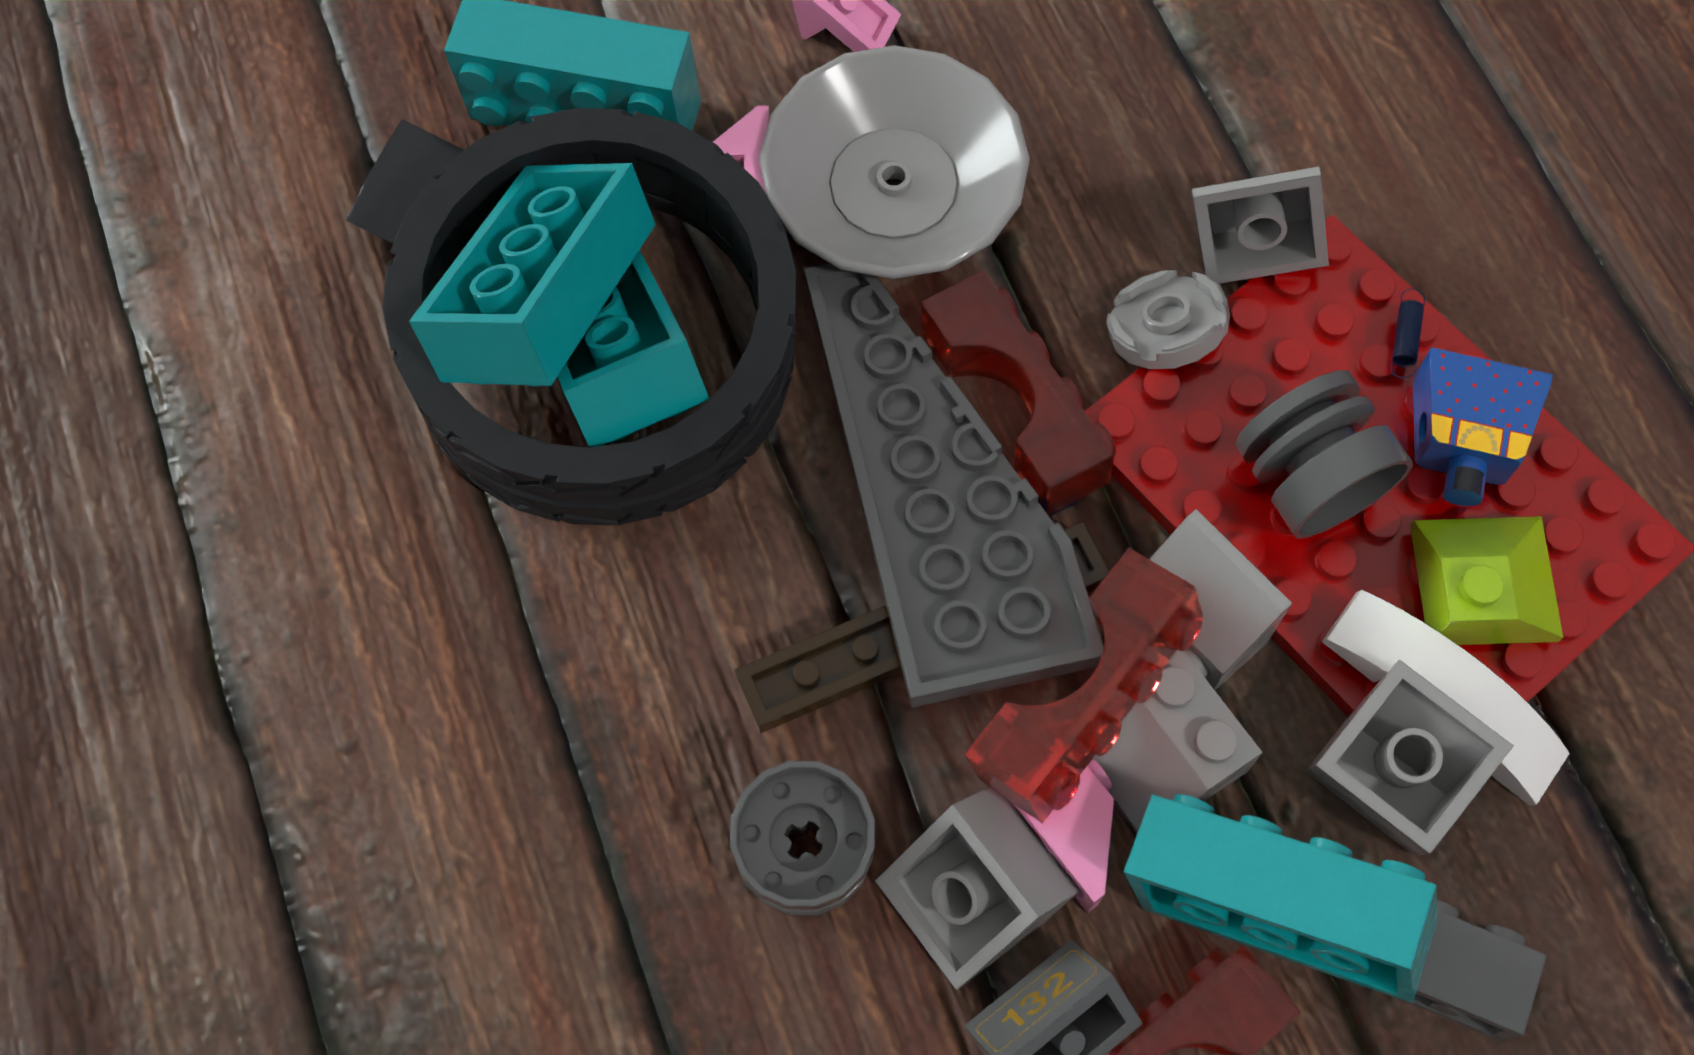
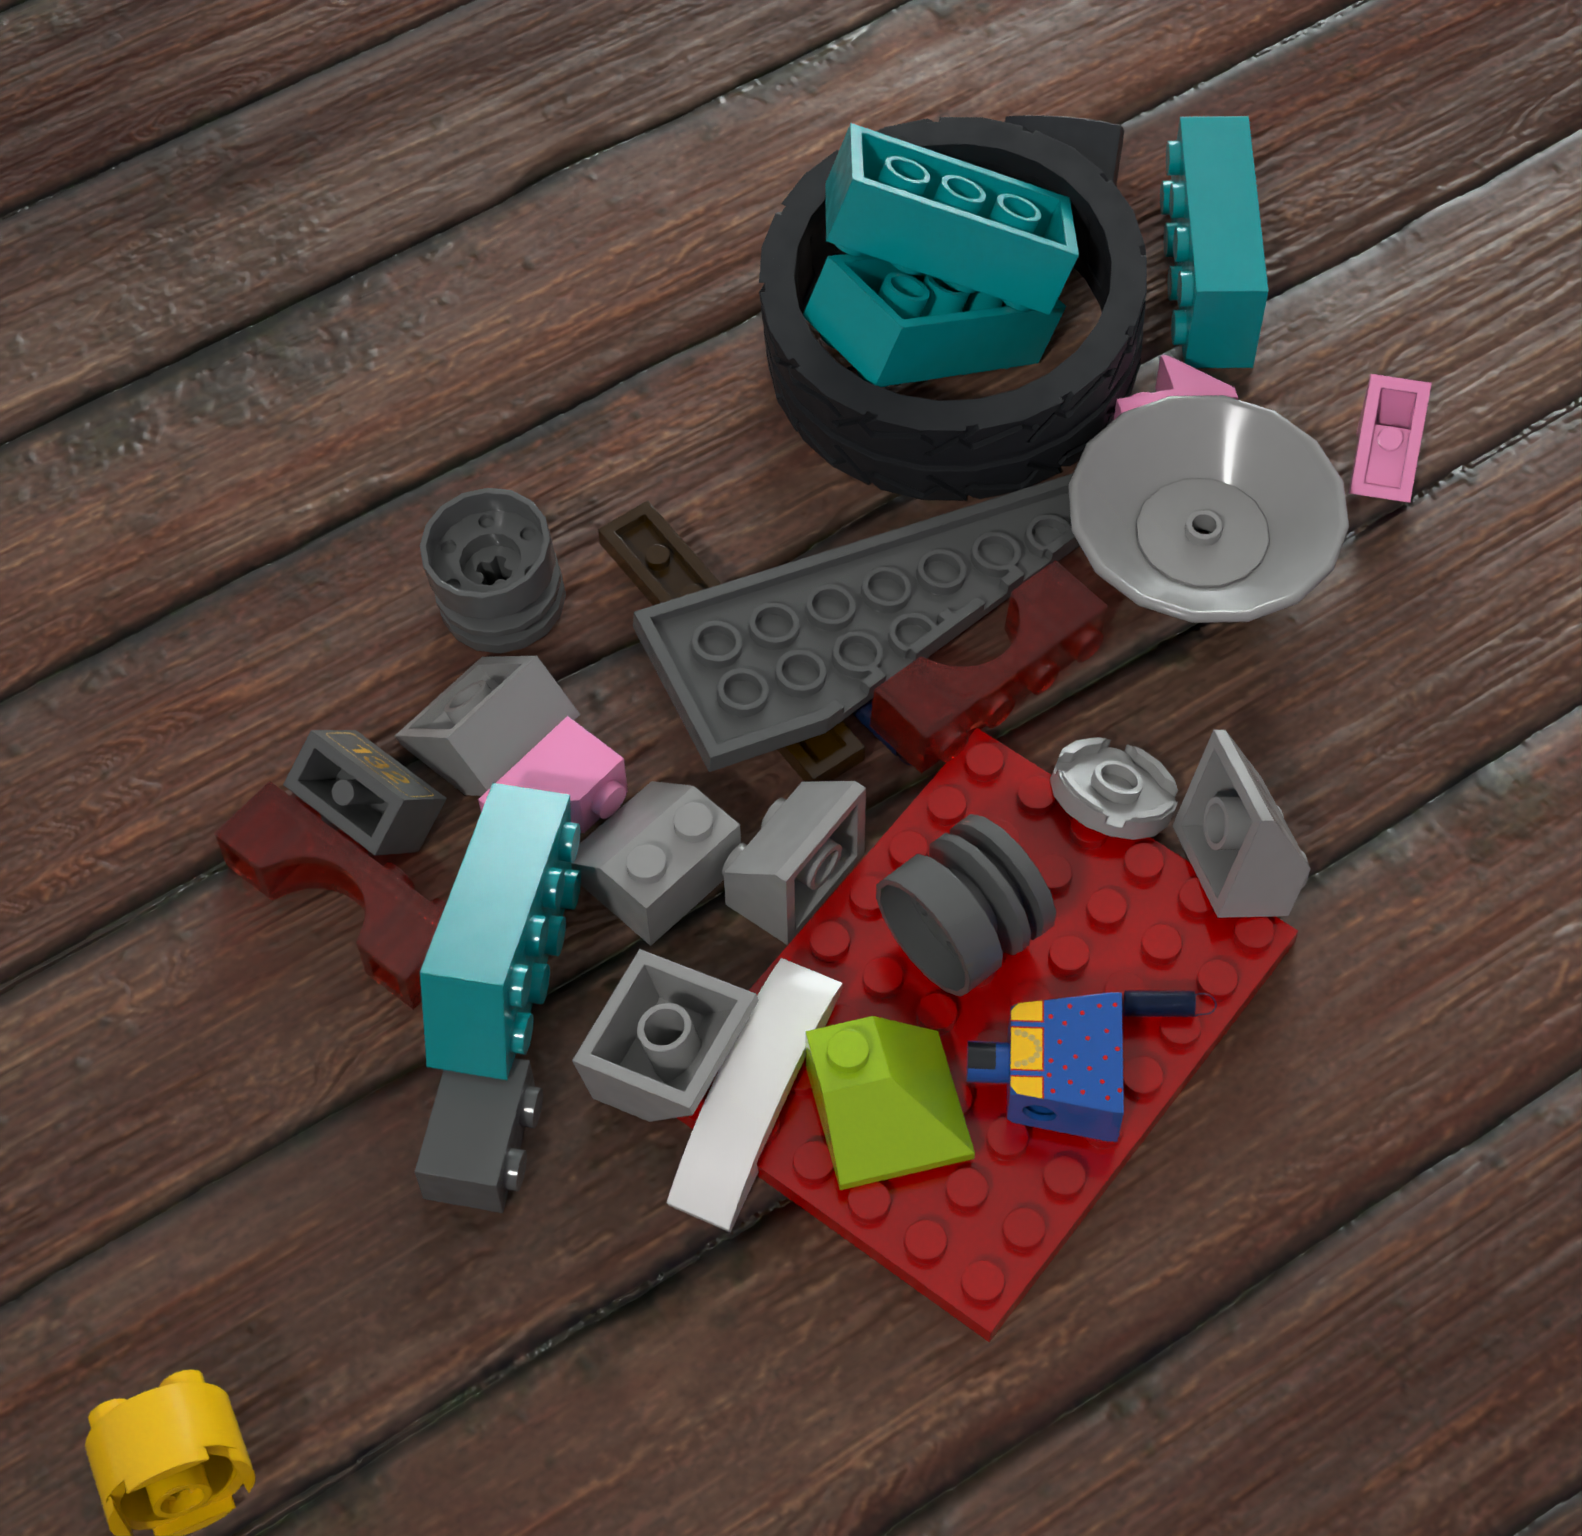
camera: 75 degrees right, 10 degrees down
(1041, 750) = (734, 767): clear red arch -> none

